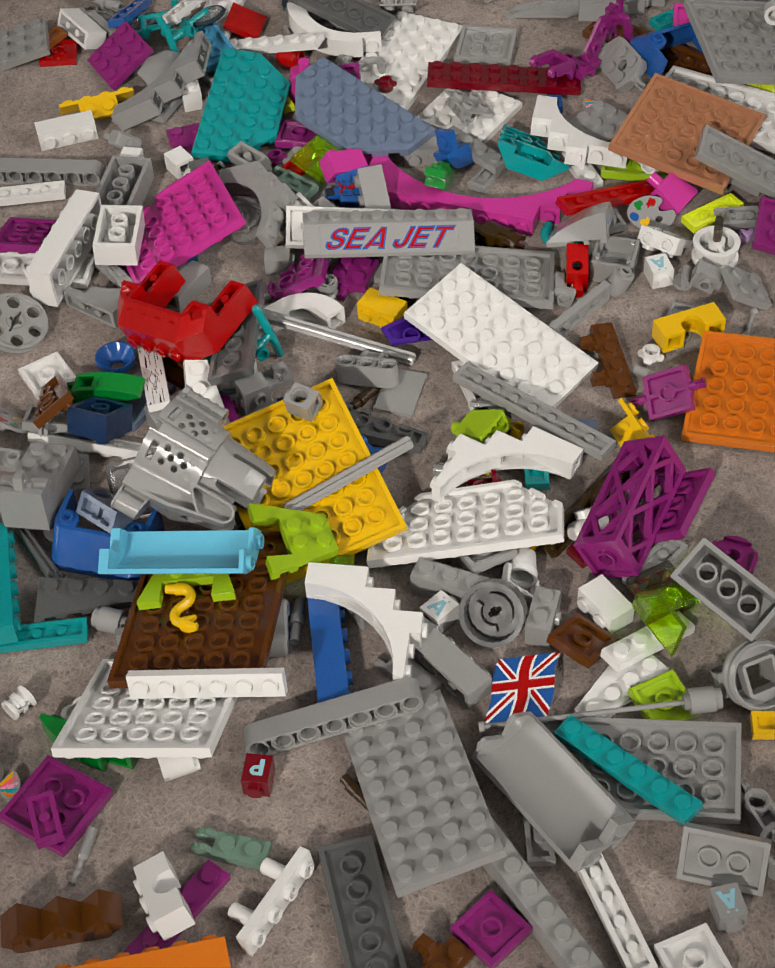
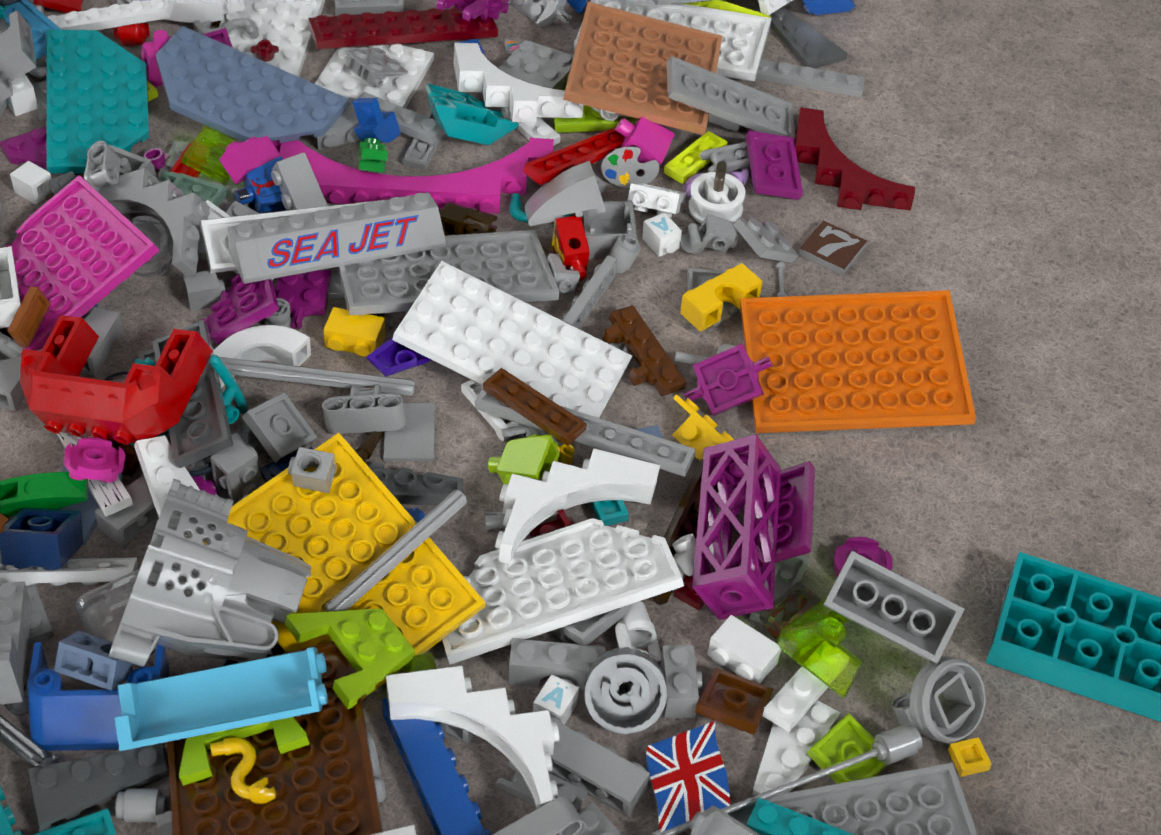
camera: 25 degrees left, 0 degrees up
(113, 353) = (28, 444): blue piece -> none
(140, 259) = (29, 317): none -> dark orange tile
(152, 369) = (94, 460): none -> dark pink plate
(228, 155) = (102, 166): none -> light grey piece
(293, 135) = (170, 127): magenta plate -> none
(296, 621) = (383, 750): light grey bar -> none
(297, 366) = (279, 427): none -> light grey plate
(497, 386) = (534, 406): none -> reddish brown tile
(650, 354) = (686, 335): white plate -> none

